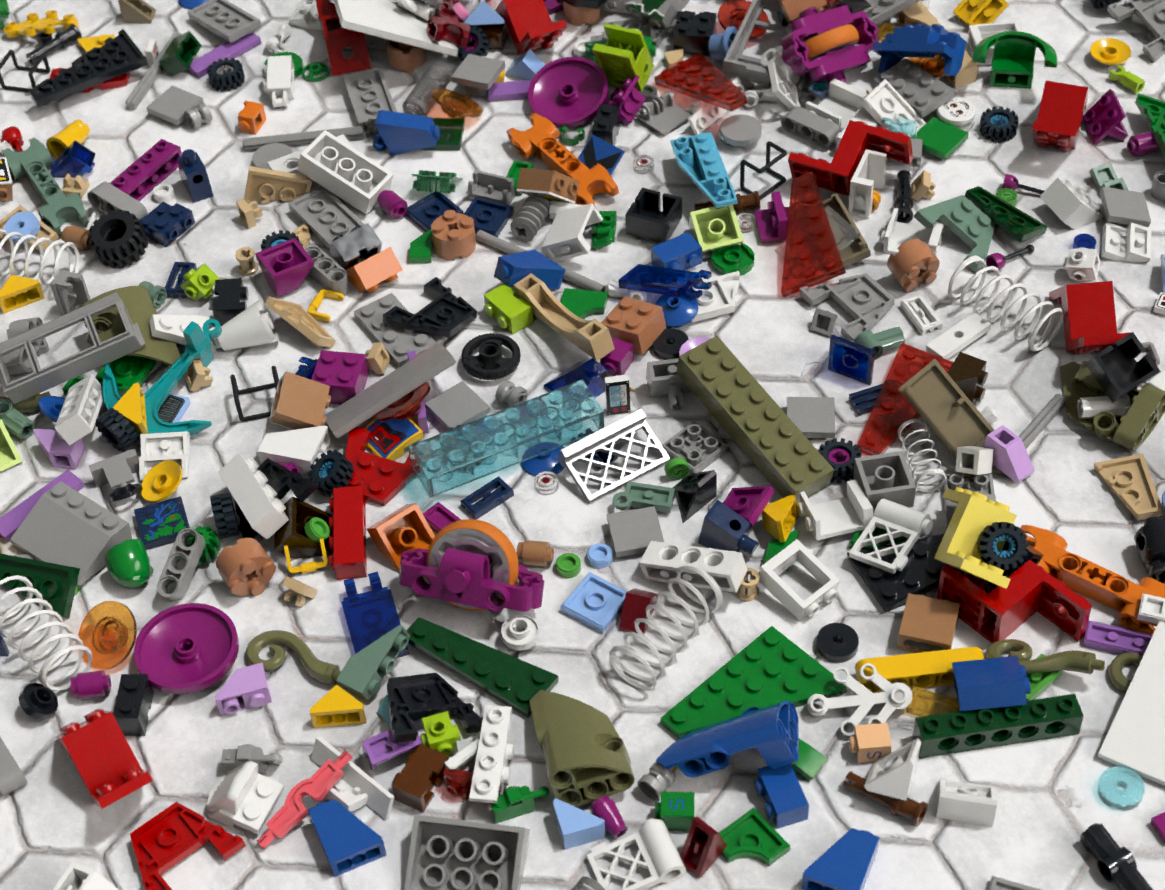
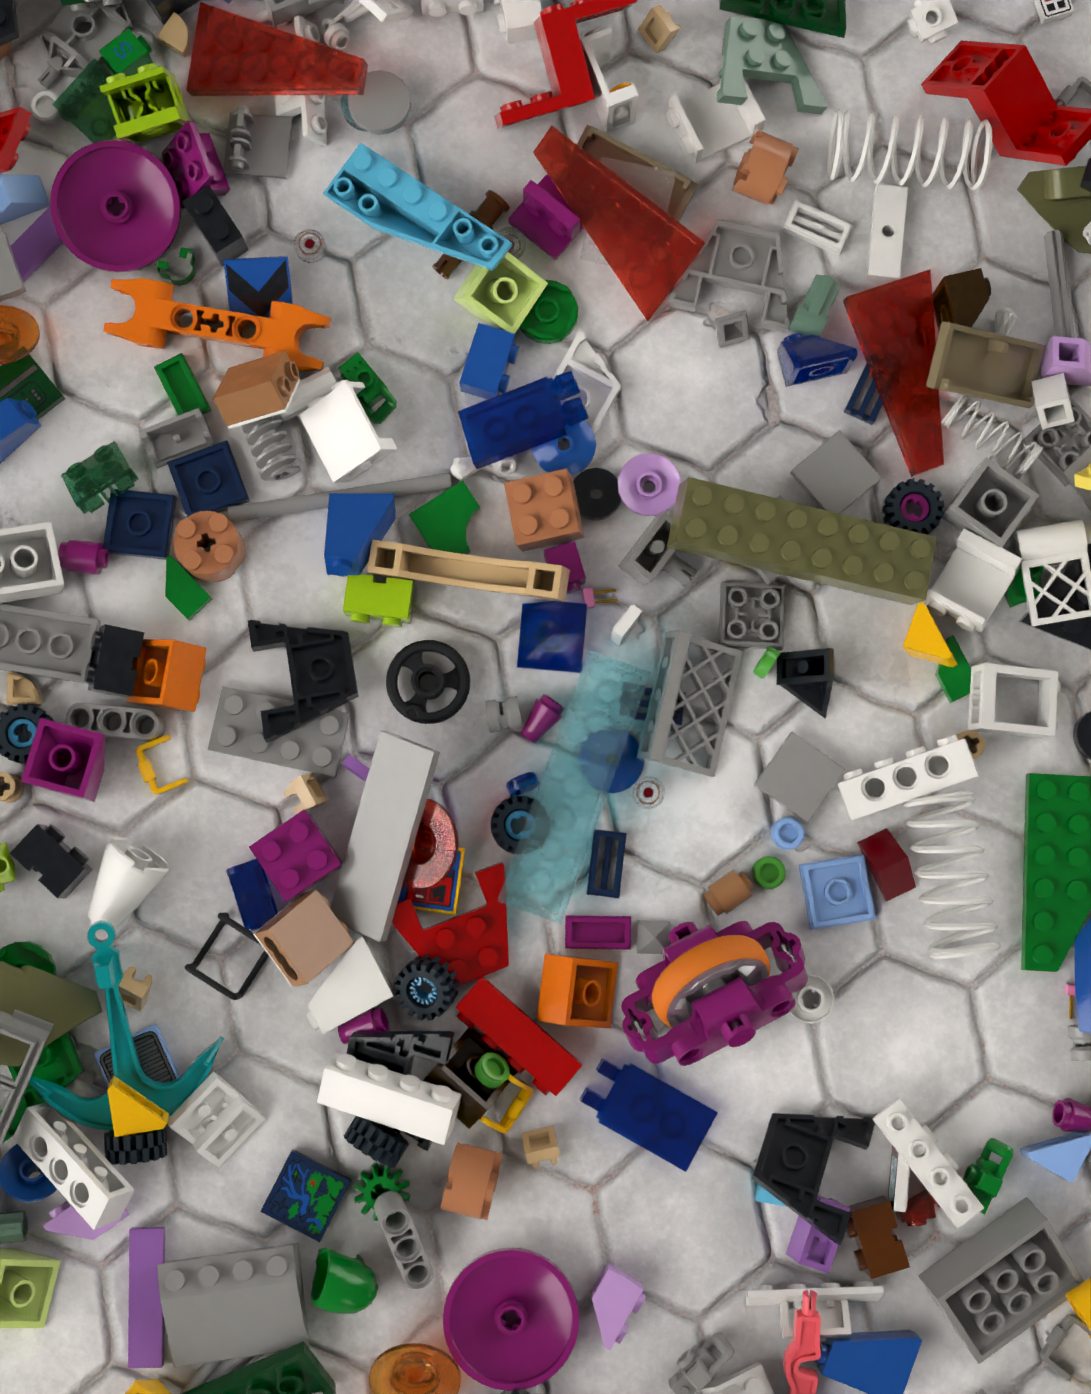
camera: 50 degrees left, 35 degrees up
(118, 473) = (203, 1192): light grey piece -> none
(161, 481) = (245, 1163): yellow dish -> none
(172, 327) = (55, 951): white wing -> none
(302, 321) = (170, 818): tan wing -> none
(317, 669) = (656, 1214): olive plant -> none
(337, 709) = (724, 1239): yellow slope -> none
(369, 666) = (710, 1171): sand green slope -> none
(440, 733) = (843, 1176): lime brick -> none
(457, 406) = (464, 779): light grey tile -> none
(487, 668) = (830, 1059): dark green wing -> none
(579, 749) = (982, 1072): olive panel -> none
(644, 496) = (768, 724): sand green hinge -> none
(648, 221) = (413, 332): black piece -> none
(649, 92) = (203, 118): dark grey tile -> none
(726, 530) = (896, 705): dark blue torso -> none
(749, 501) = (880, 656): magenta tile -> none
(767, 167) = (489, 147): black piece -> none
(810, 127) = (451, 29): light grey beam -> none
(903, 195) = (662, 71): black pin -> none
(999, 260) = (833, 81): hinge -> none

